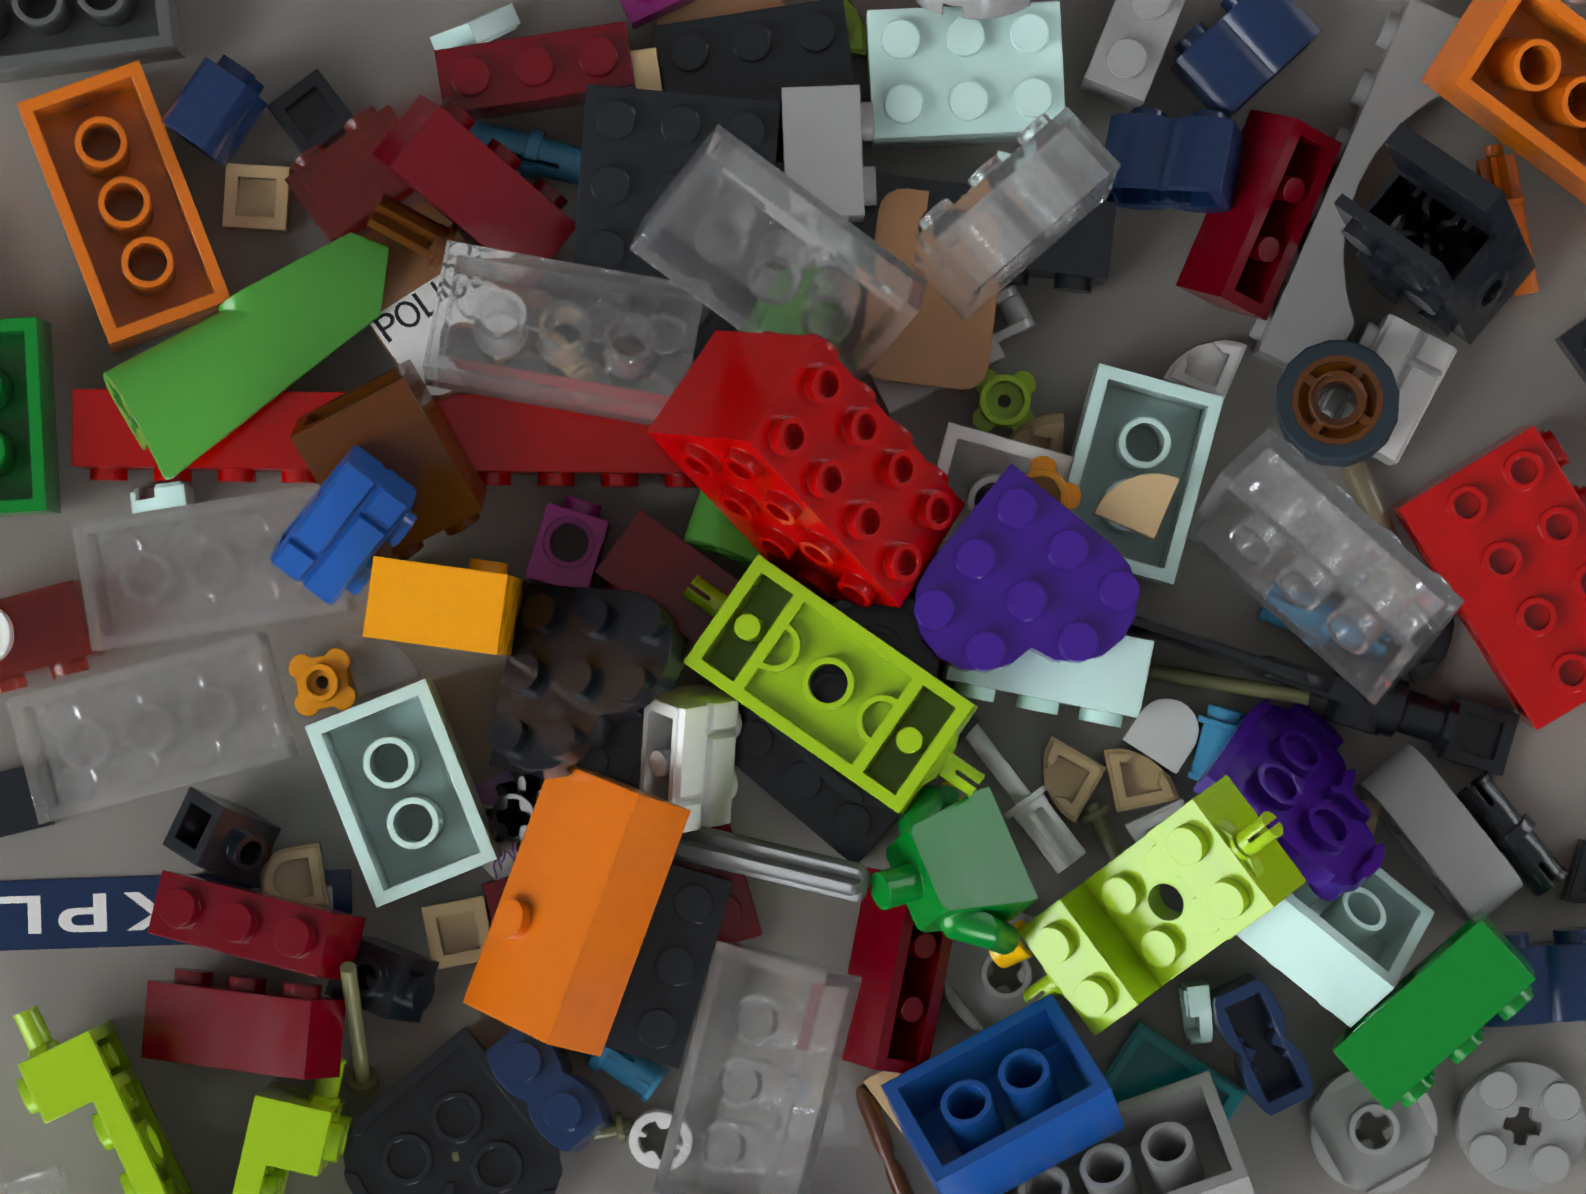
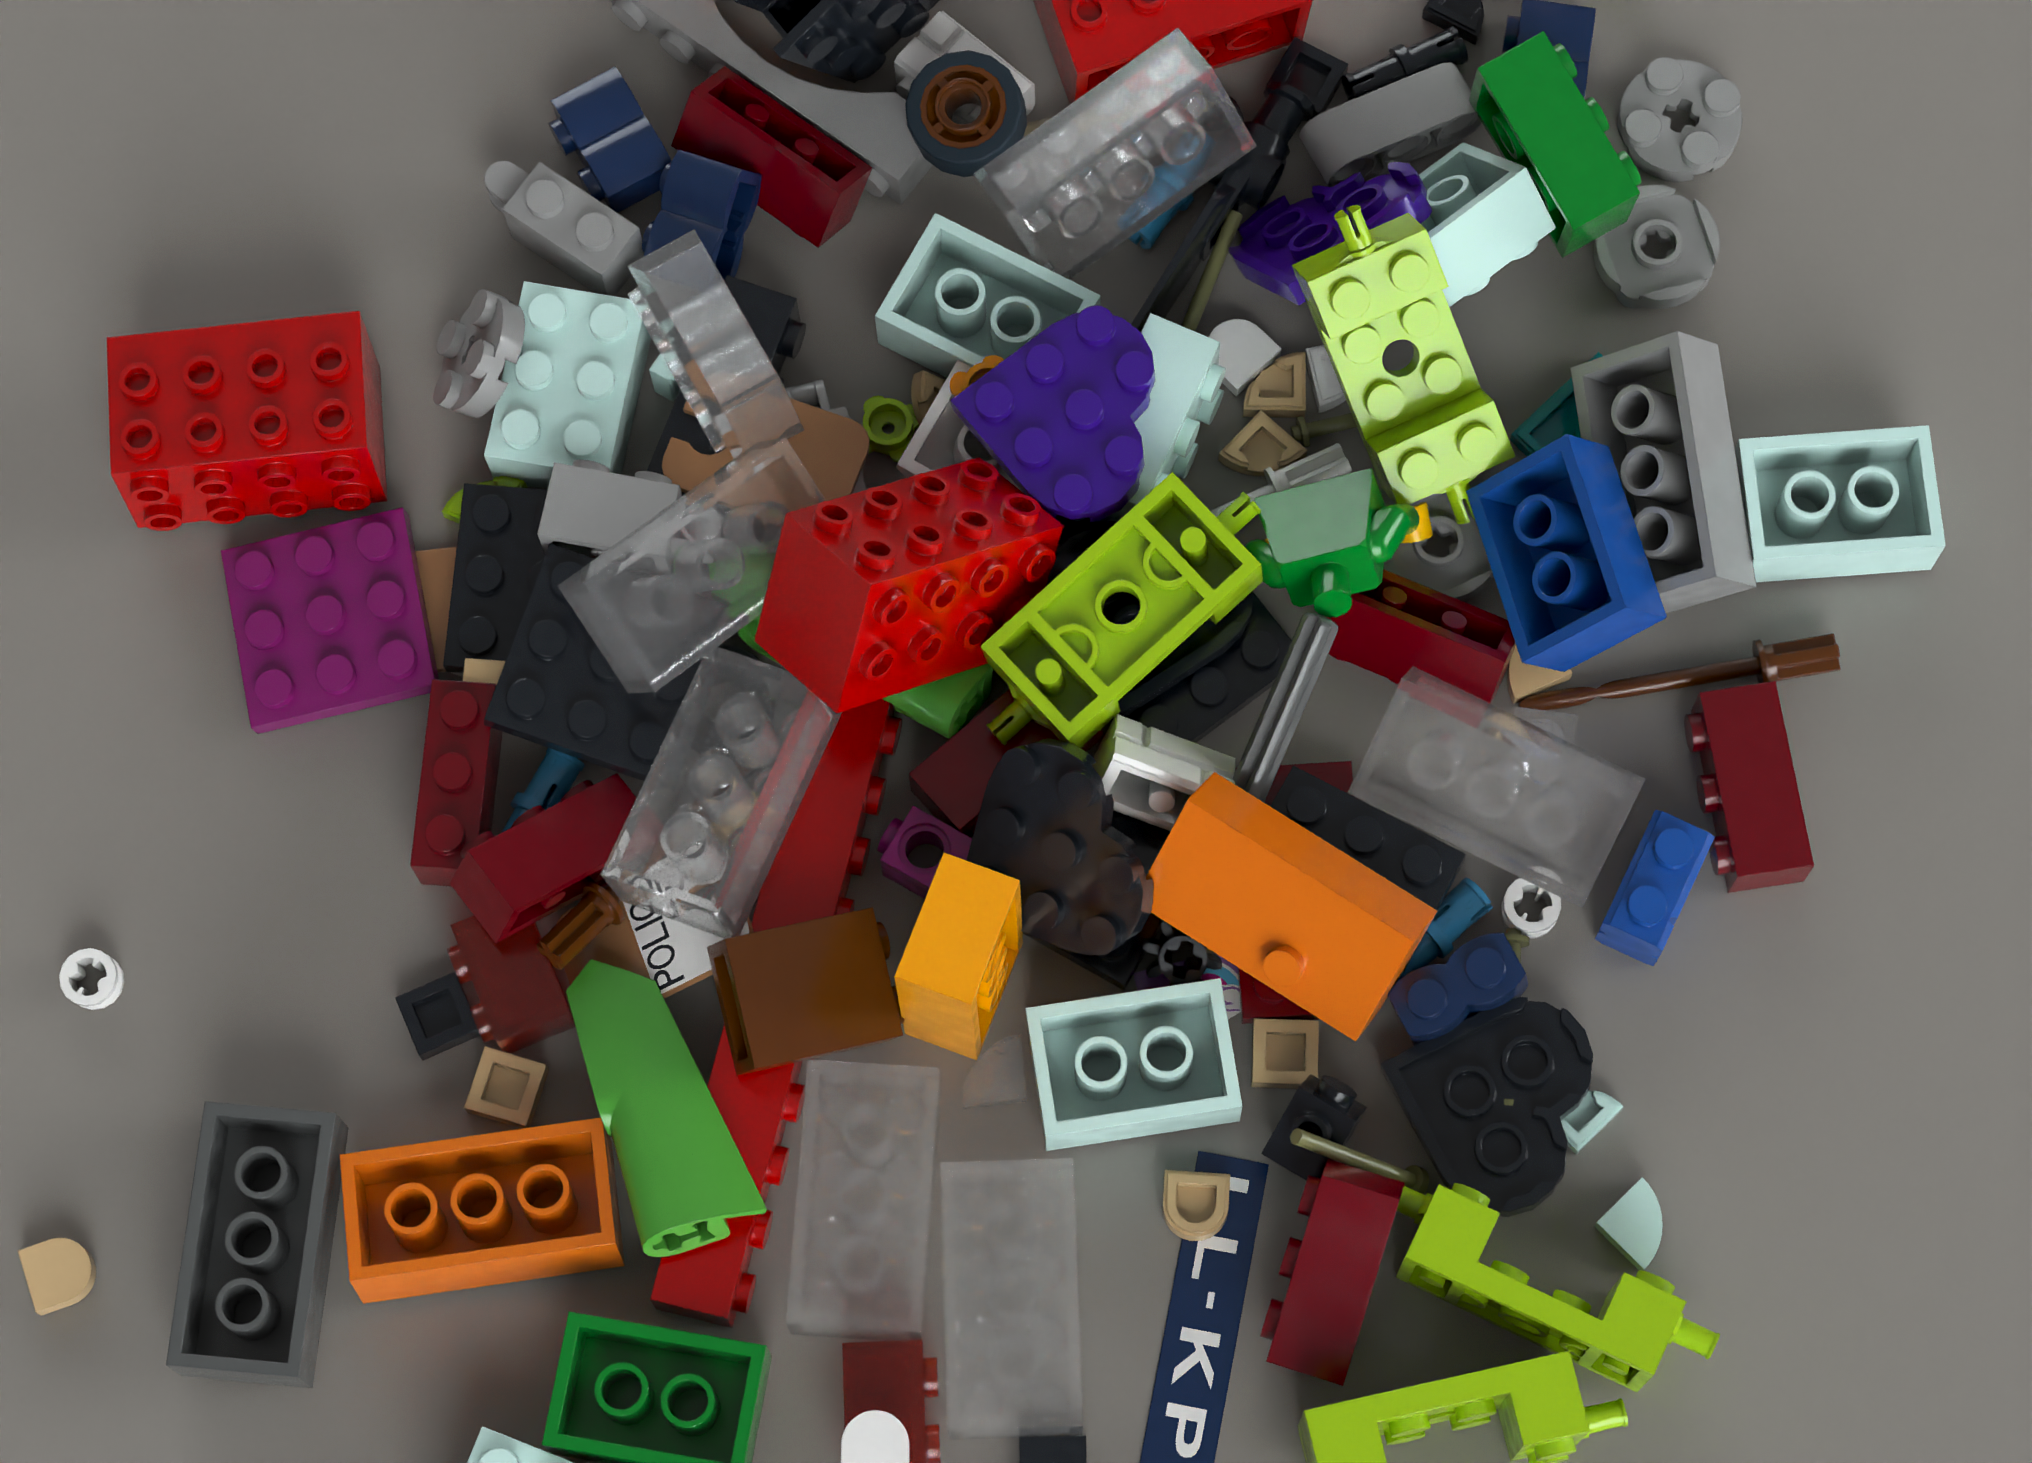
camera: 70 degrees left, 15 degrees down
(162, 496) = (781, 1239): light aqua tile -> none
(217, 108) = (409, 1091): dark blue brick -> none
(221, 836) = (1136, 1256): black brick -> none
(255, 925) = (1233, 1235): dark red brick -> none
(339, 689) = (1017, 1115): light orange plate -> none
(345, 526) = (857, 1033): blue brick -> none
(479, 29) = (399, 836): light aqua tile -> none
(1138, 503) = (1016, 305): tan tile -> none
(1196, 1011) = (1512, 378): light aqua tile -> none
(1207, 366) = (898, 237): white tile -> none
(1216, 729) = (1261, 307): dark azure pin -> none
(1264, 1060) = (1566, 321): dark blue brick -> none

